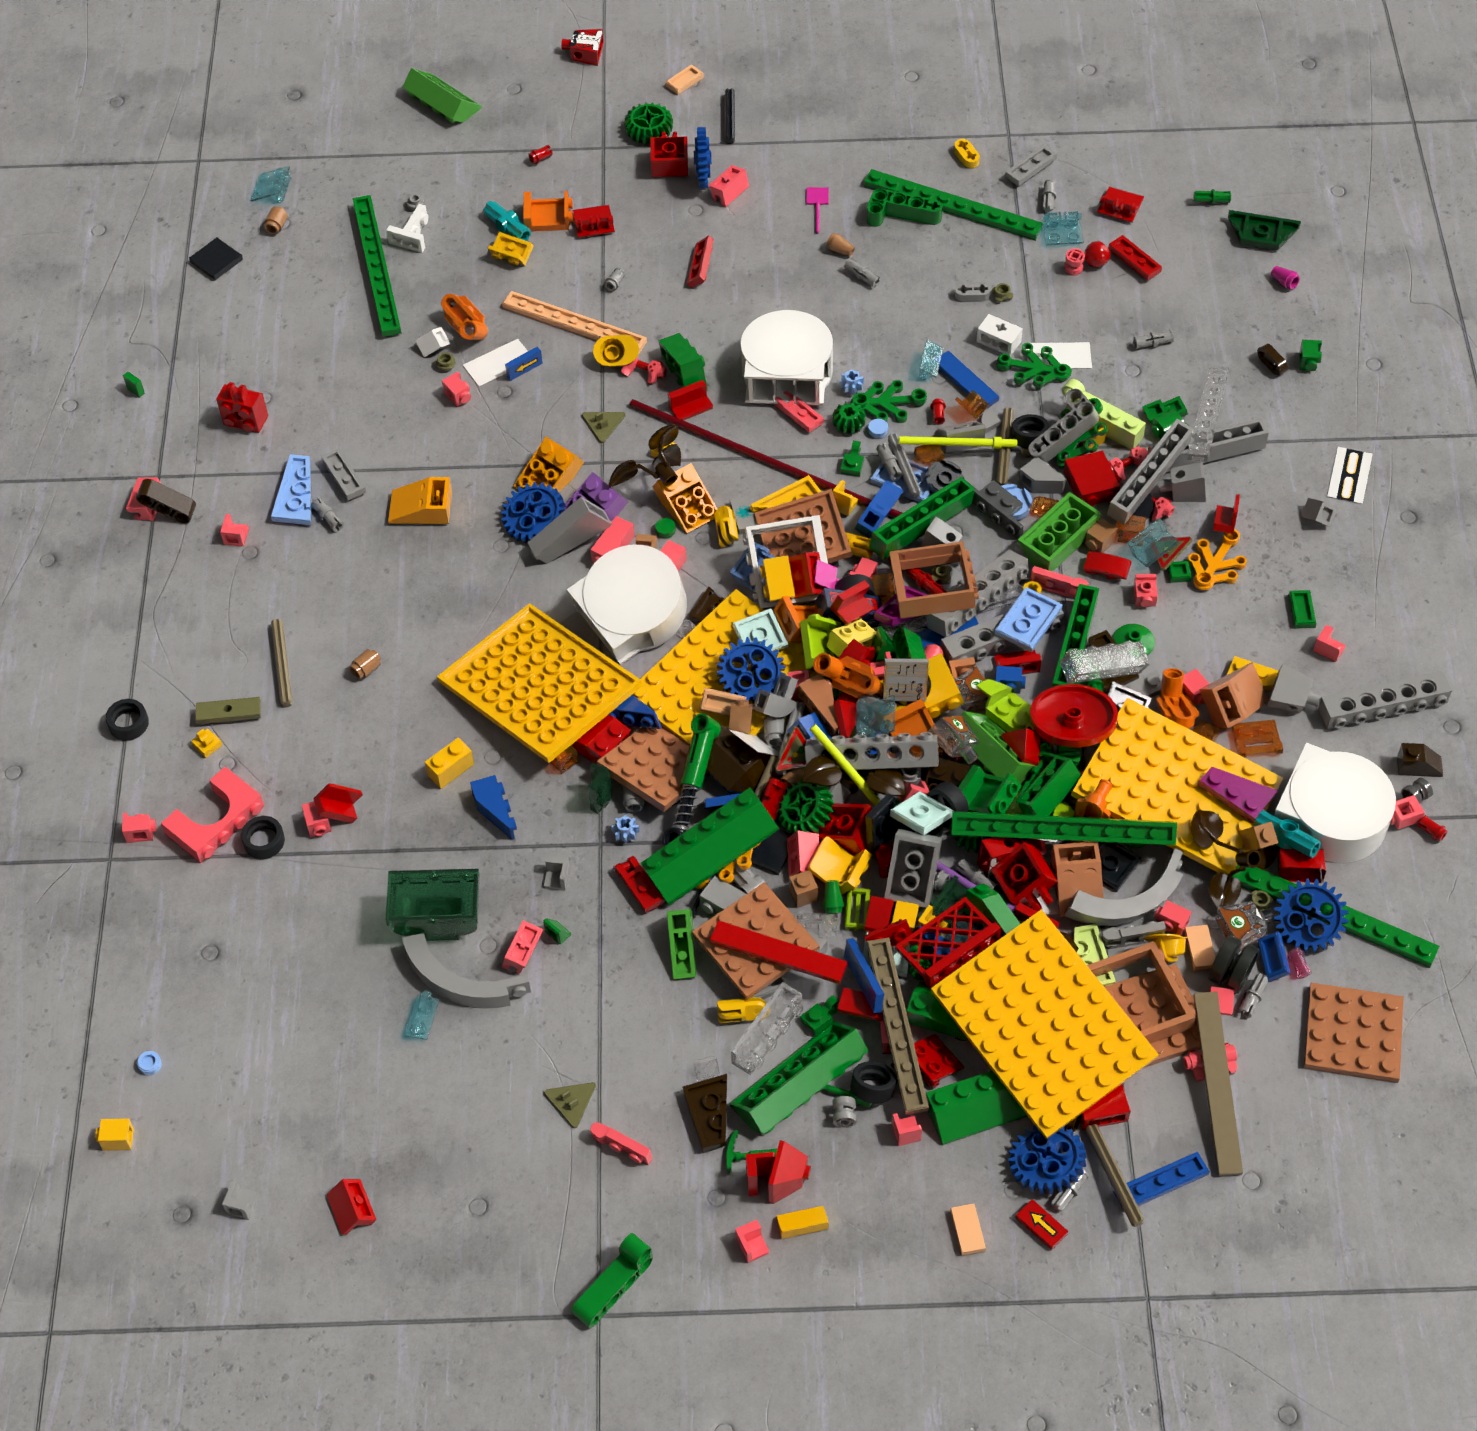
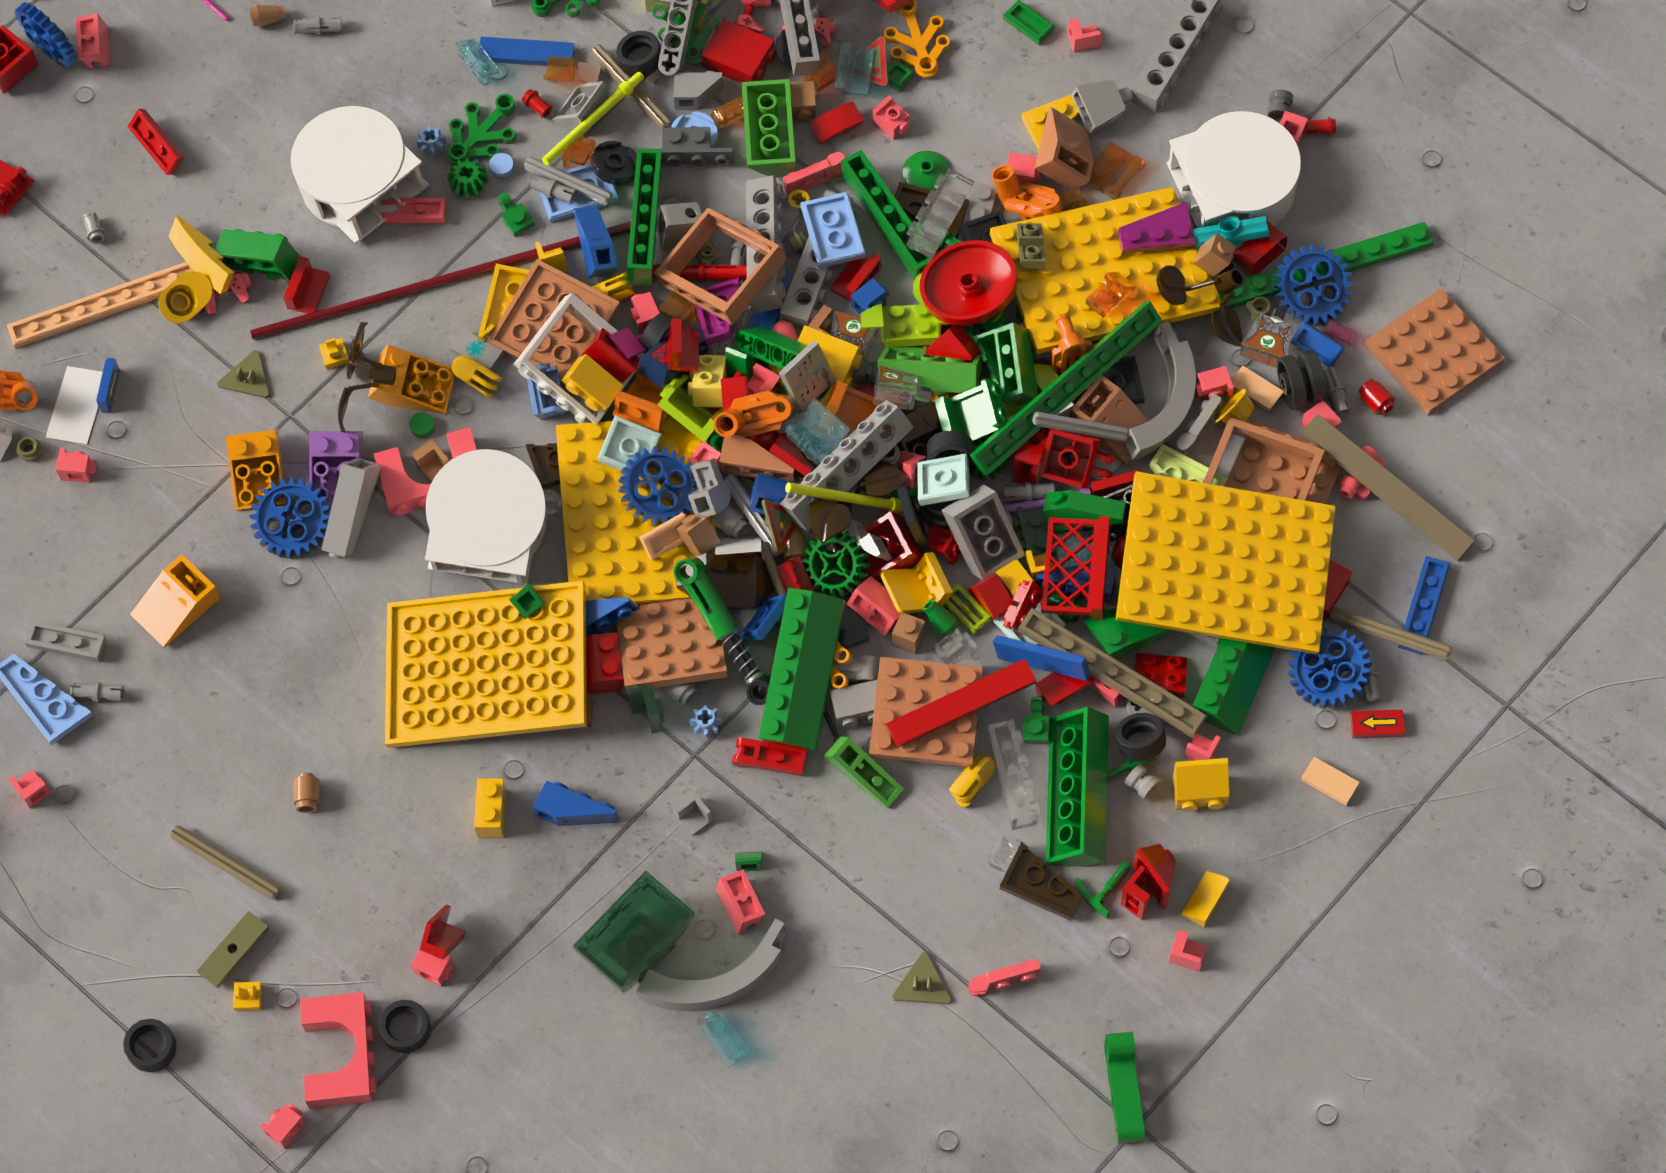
camera: 45 degrees left, 10 degrees up
(598, 663) = (526, 601): none -> green slope
(650, 338) = (199, 255): none -> yellow slope
(835, 809) = (869, 542): none -> light grey slope
(877, 1147) = (1201, 784): none -> yellow slope
(1001, 608) = (797, 241): none -> olive plate
(1046, 859) = (1080, 426): none -> light grey axle
(1138, 727) = (1030, 245): none -> olive slope
(1161, 799) = (1110, 293): none -> clear orange slope
(1277, 1023) = (1376, 397): none -> red brick
(1418, 760) = (1253, 78): dark brown slope -> none

